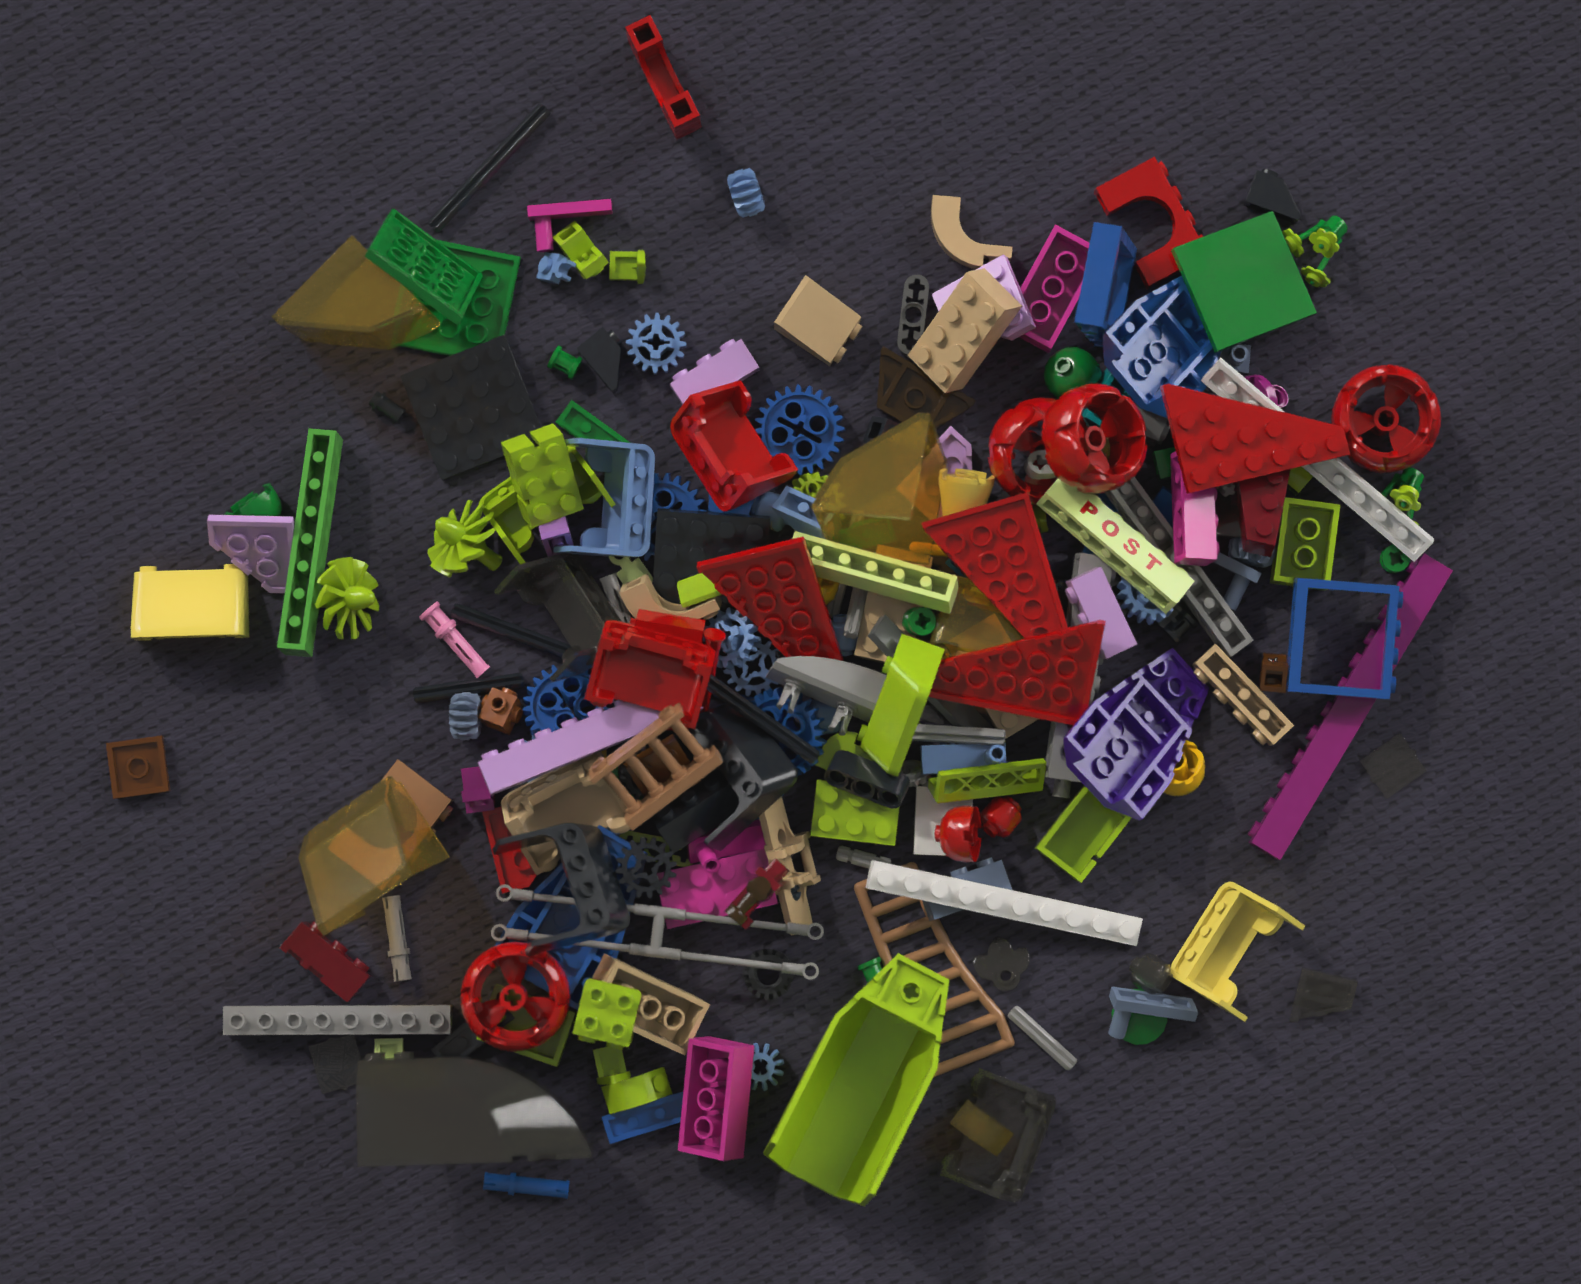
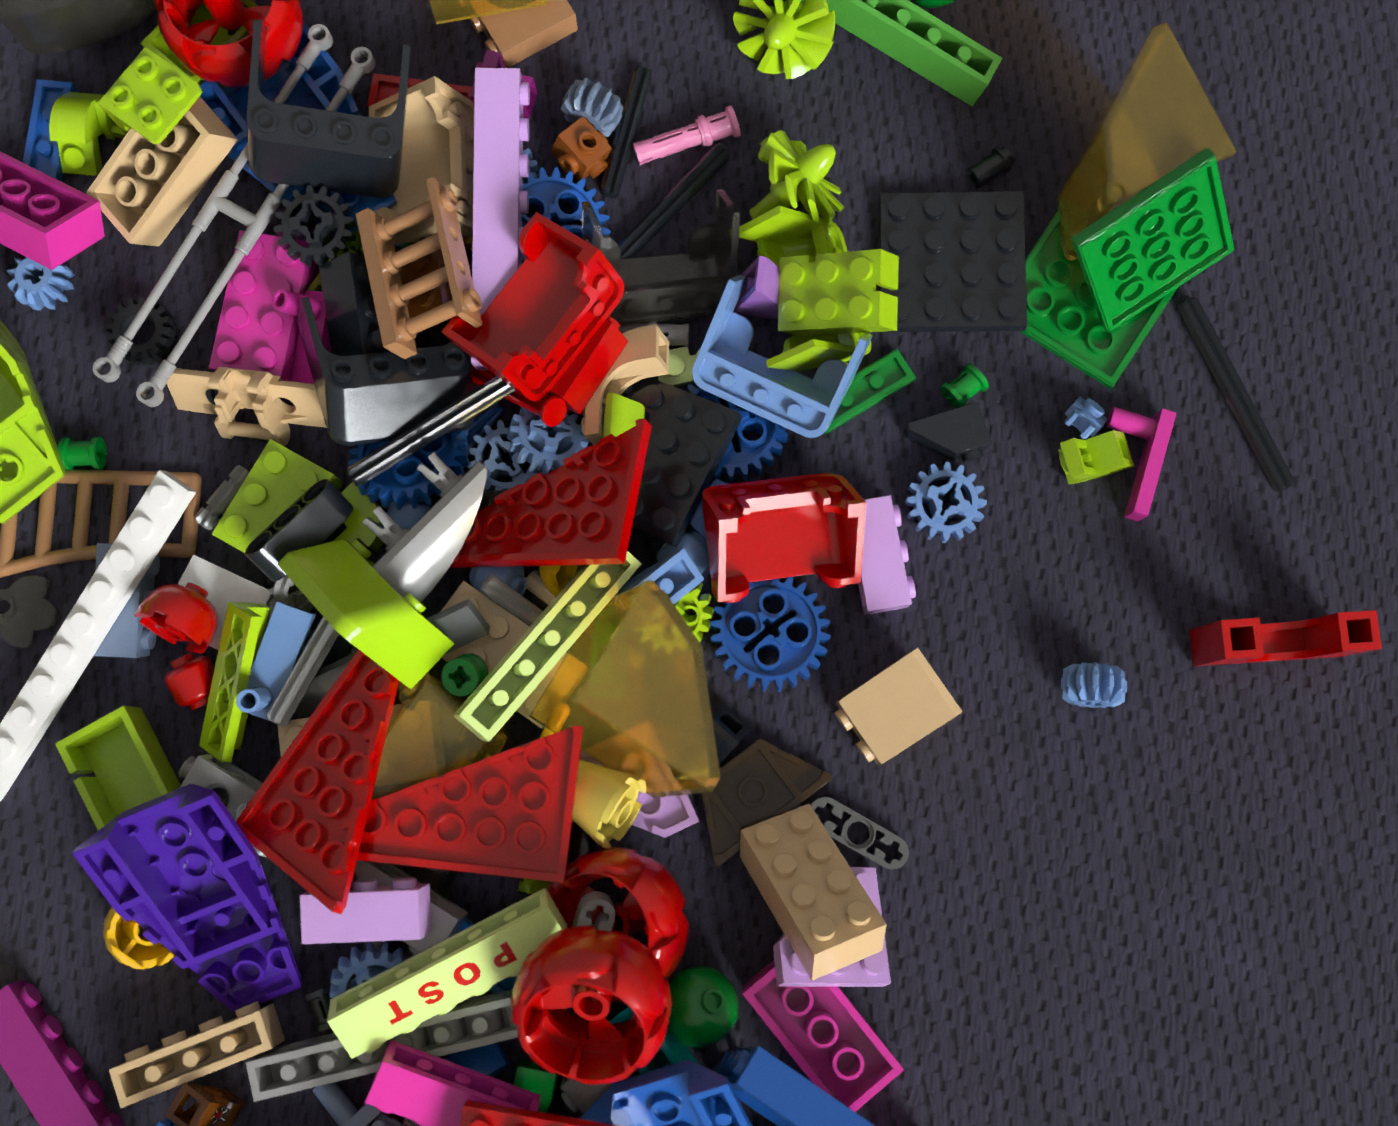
camera: 115 degrees right, 5 degrees down
(628, 266) = (1053, 508): lime tile -> none
(757, 891) = (213, 330): hips -> none
(953, 239) = (936, 925): tan arch -> none

